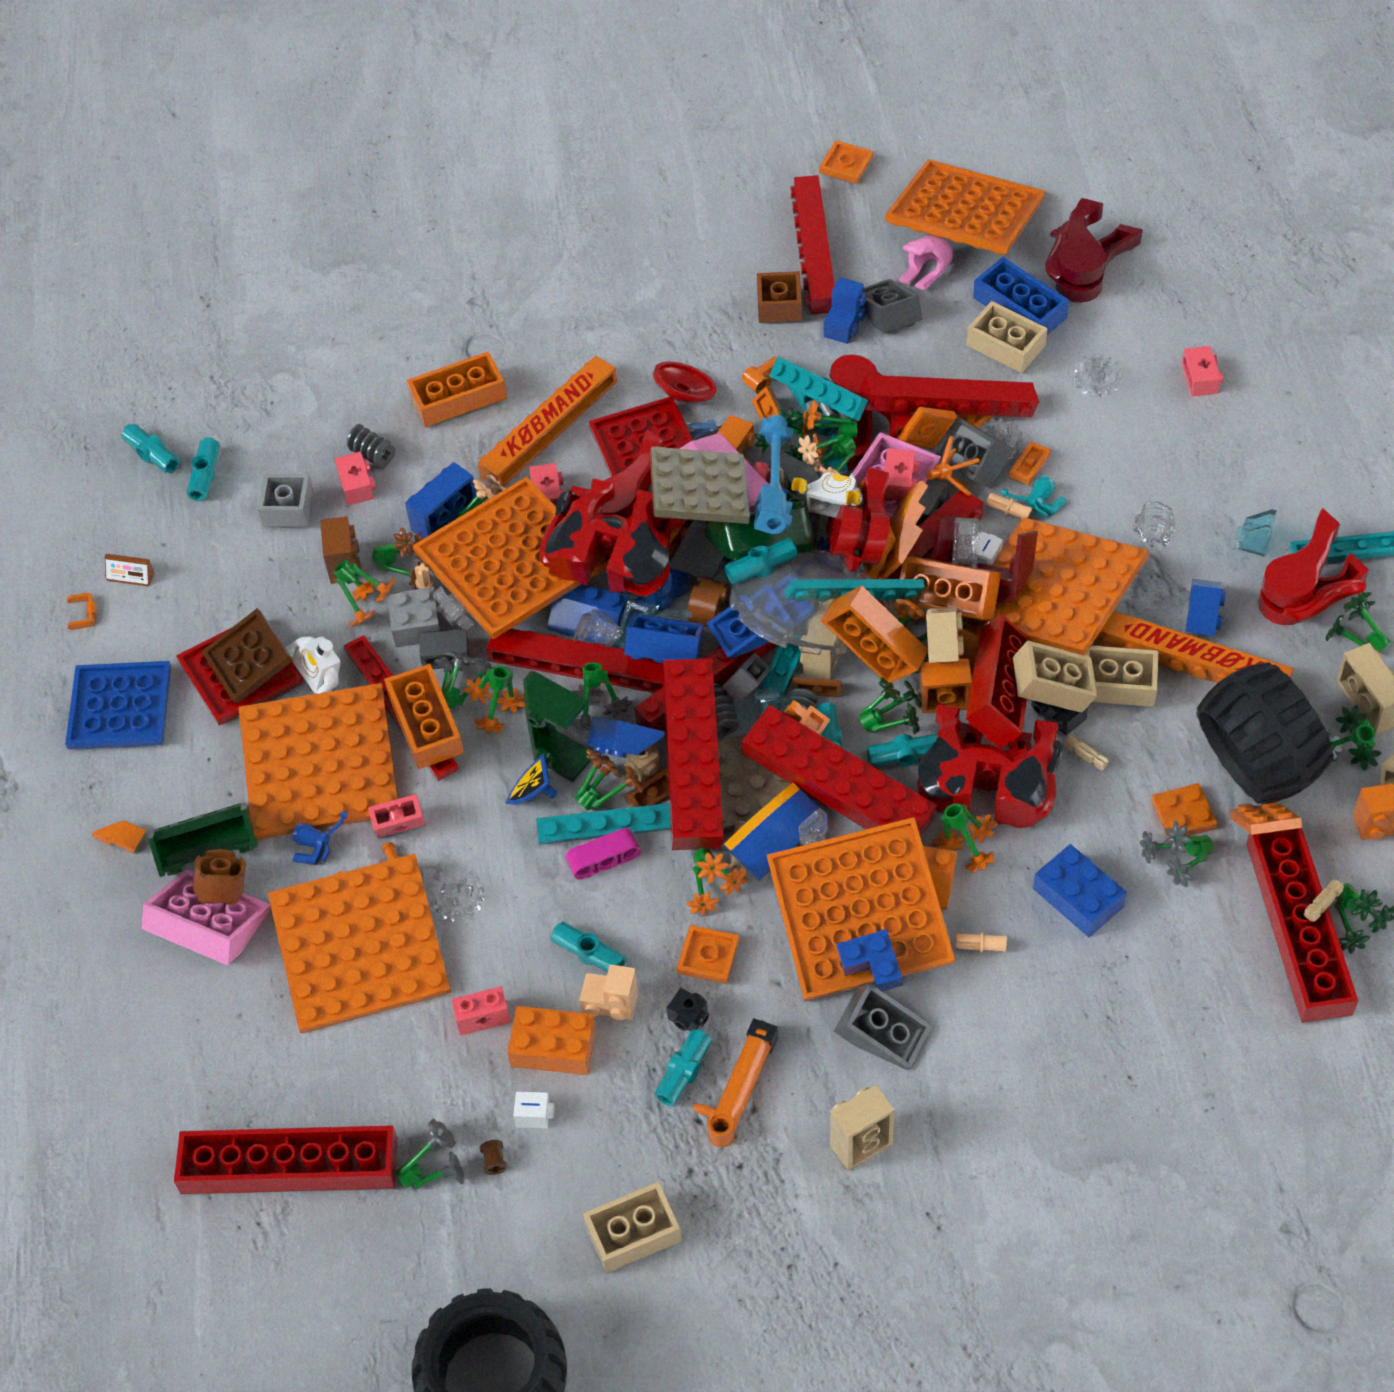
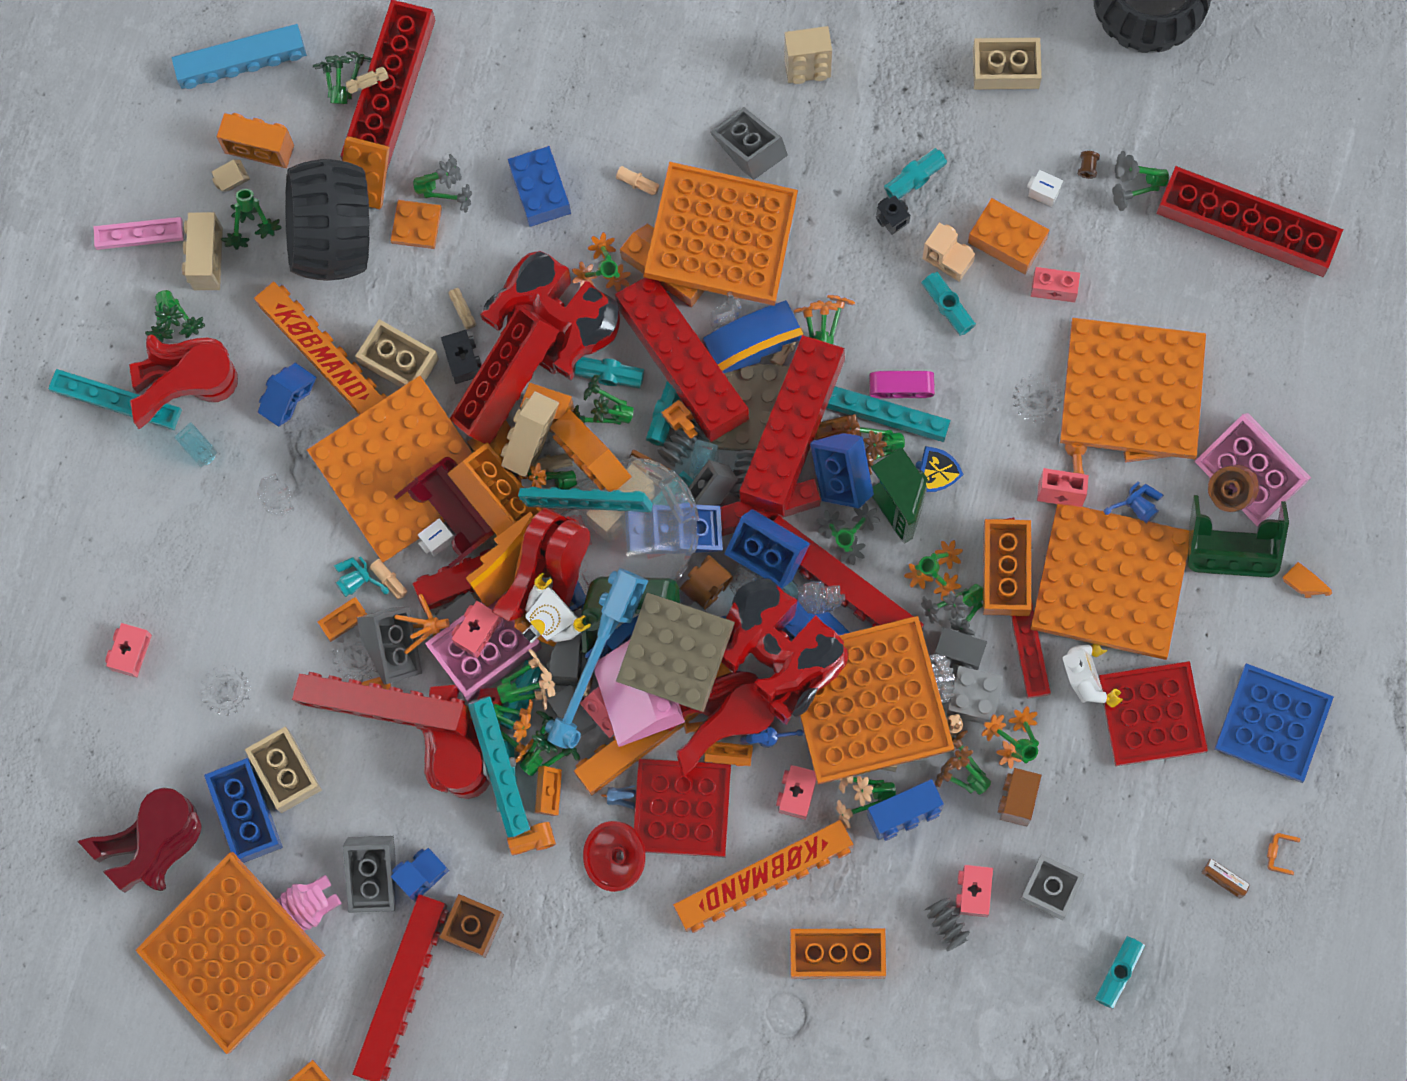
camera: 155 degrees left, 20 degrees up
(150, 448) = (1165, 1026): teal piece -> none
(247, 656) = (1144, 704): reddish brown plate -> none
(708, 954) = (855, 260): orange plate -> none
(759, 1043) = (847, 169): orange piece -> none
(761, 561) = (668, 566): teal piece -> none
(872, 953) = (735, 186): blue brick -> none
(927, 427) = (417, 681): orange tile -> none
(966, 542) = (456, 530): clear brick -> none
(1054, 676) = (460, 351): tan brick -> none

